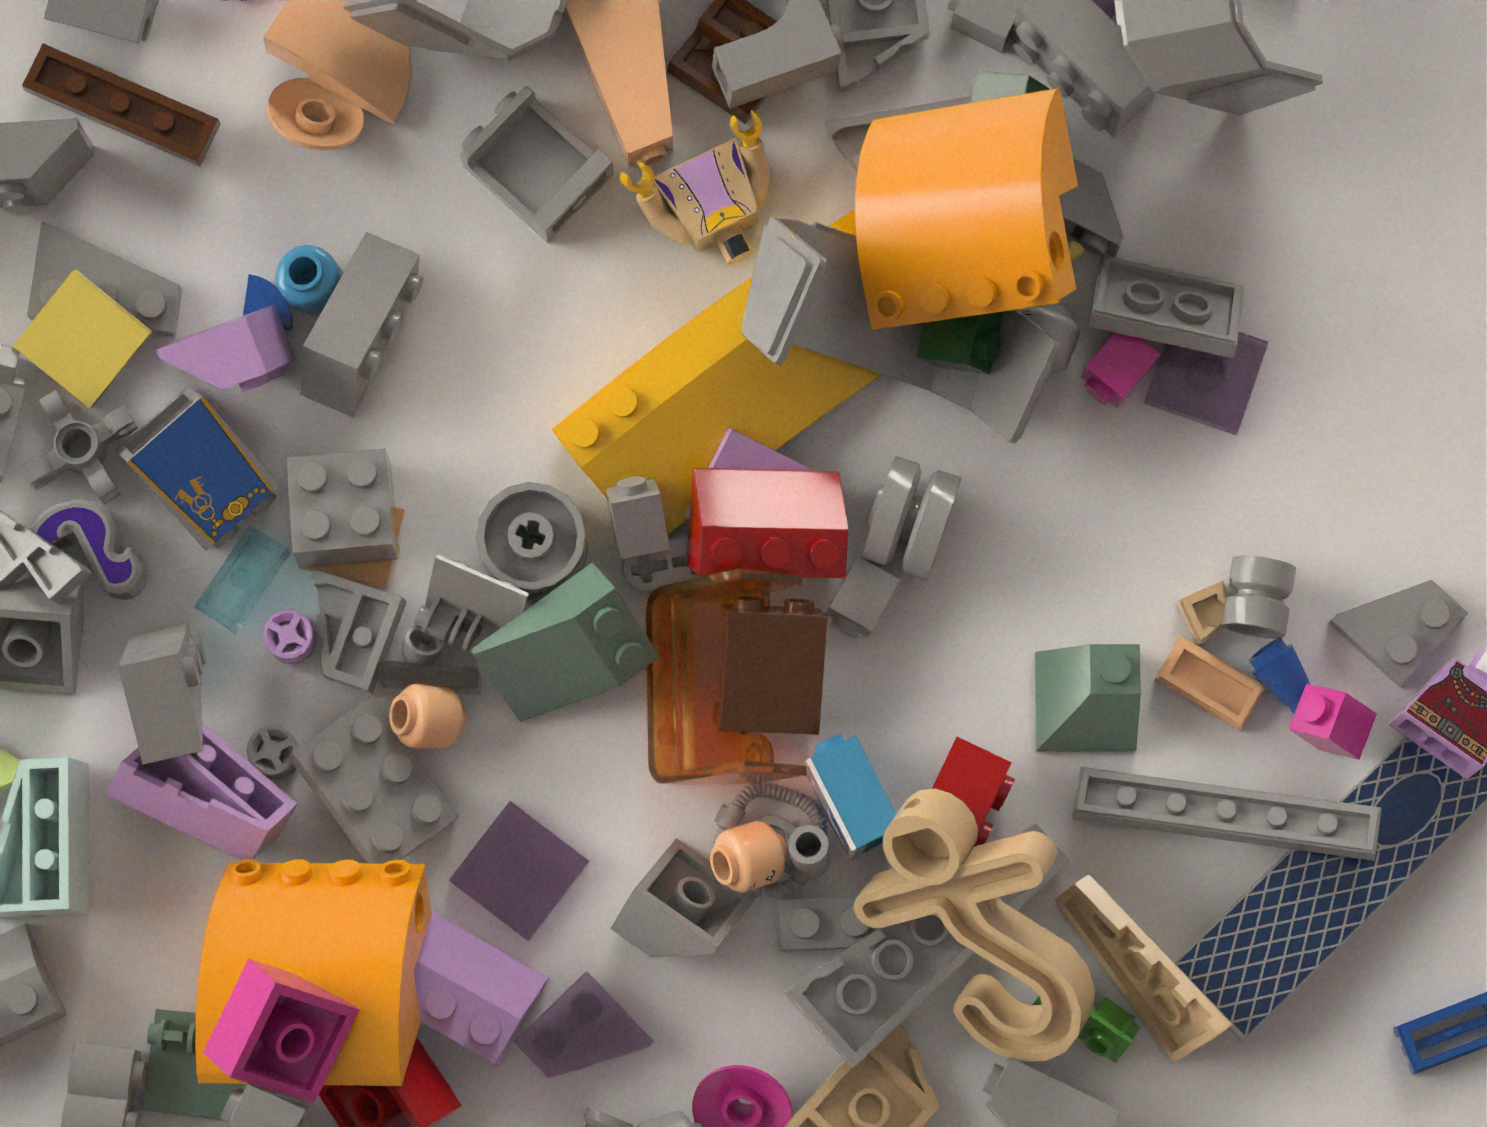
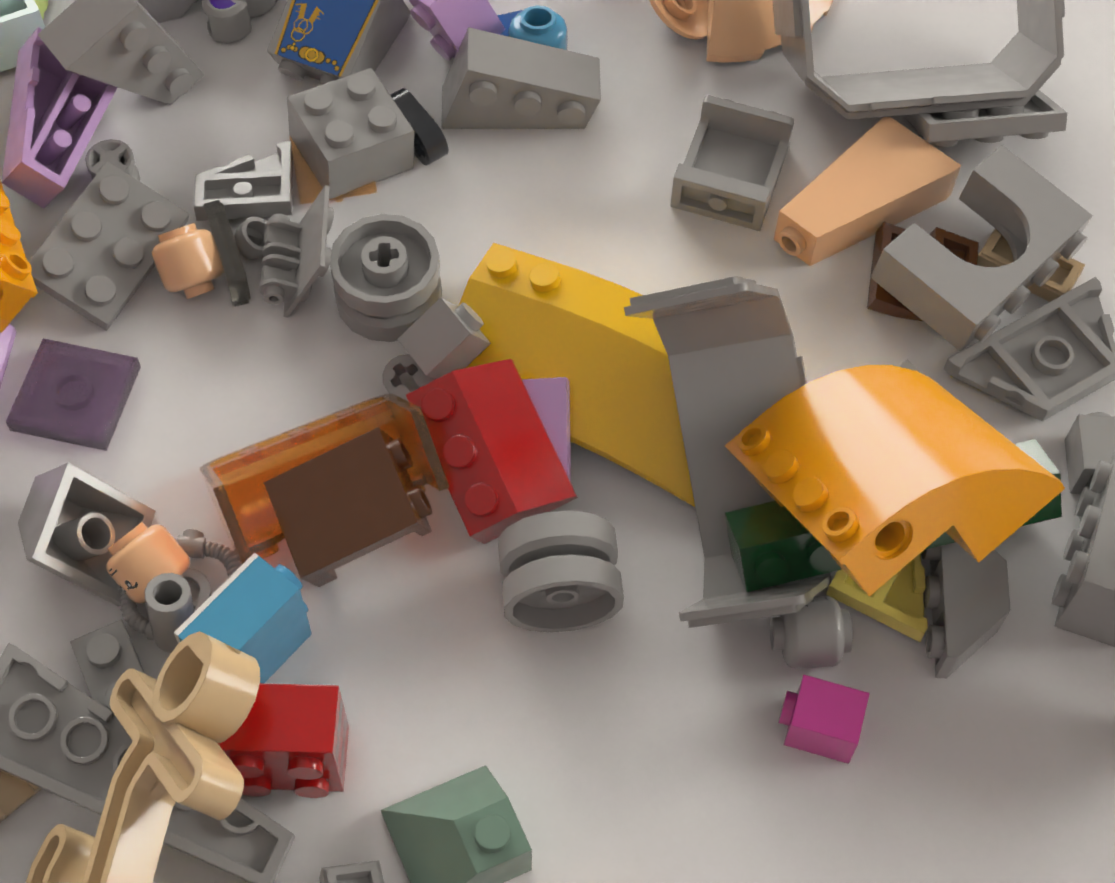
camera: 65 degrees right, 20 degrees down
(242, 579) = (251, 100): clear light blue slope -> none
(281, 631) = (219, 132): lavender wheel -> none
(356, 438) = (428, 137): none -> black beam
(566, 647) = (299, 334): sand green slope -> none
(710, 195) = (809, 295): torso -> none
(861, 598) = (461, 571): light grey brick -> none
(1166, 306) = (912, 736): light grey tile -> none
(1207, 385) = (869, 815): clear purple tile -> none

